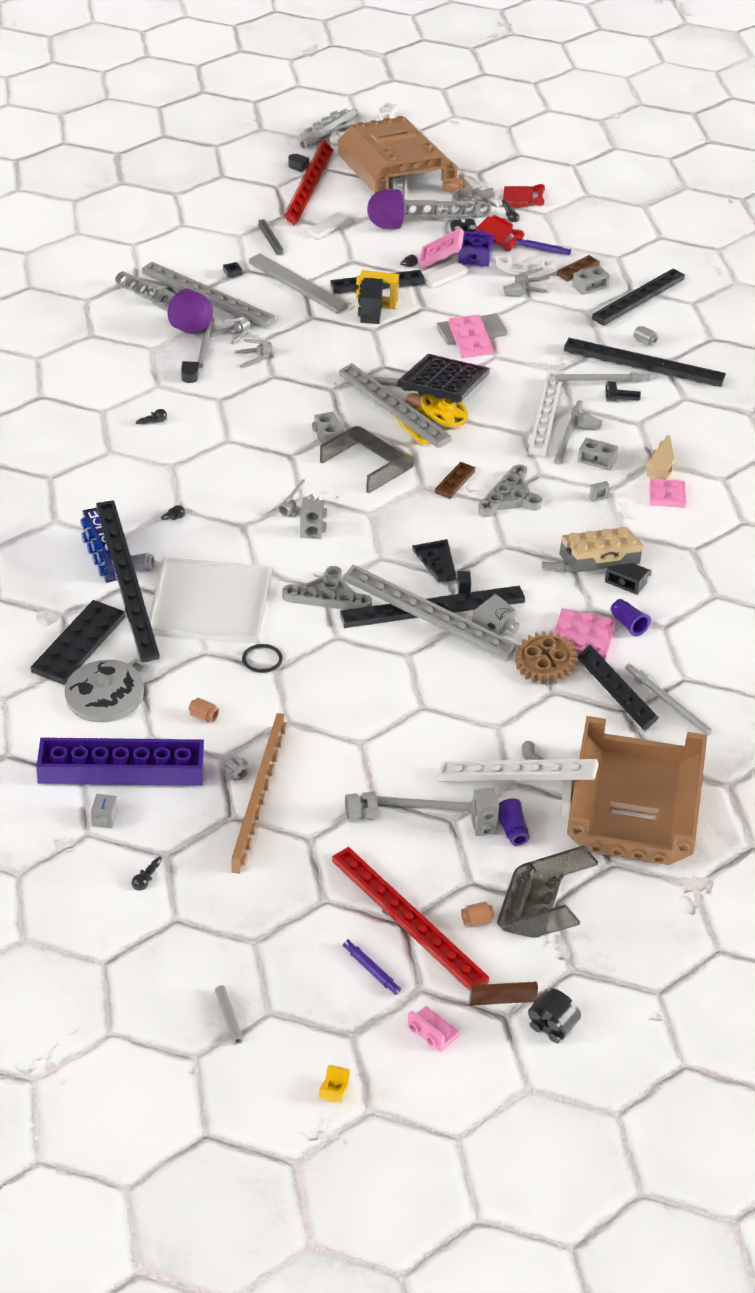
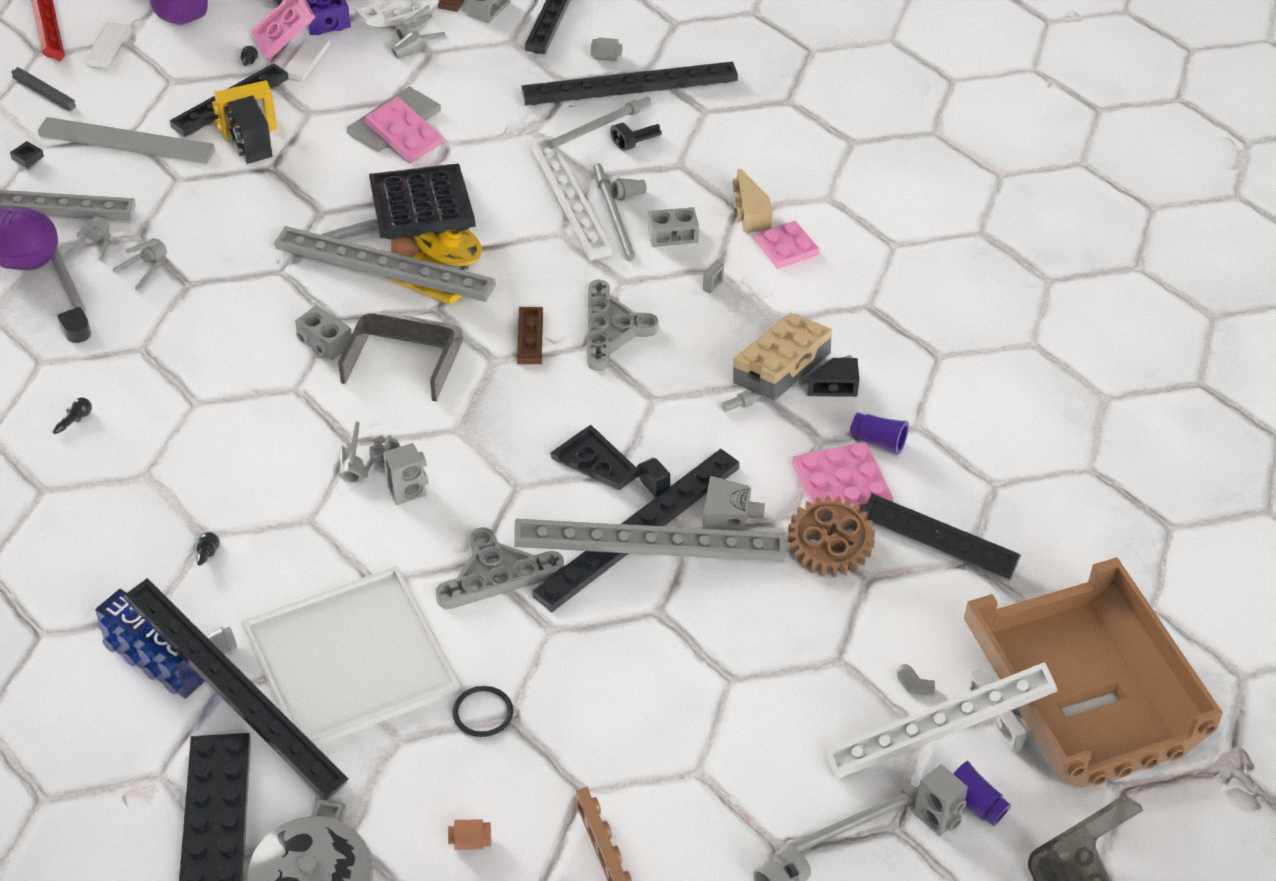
camera: 30 degrees left, 5 degrees up
(642, 678) = (954, 508): light grey bar -> none

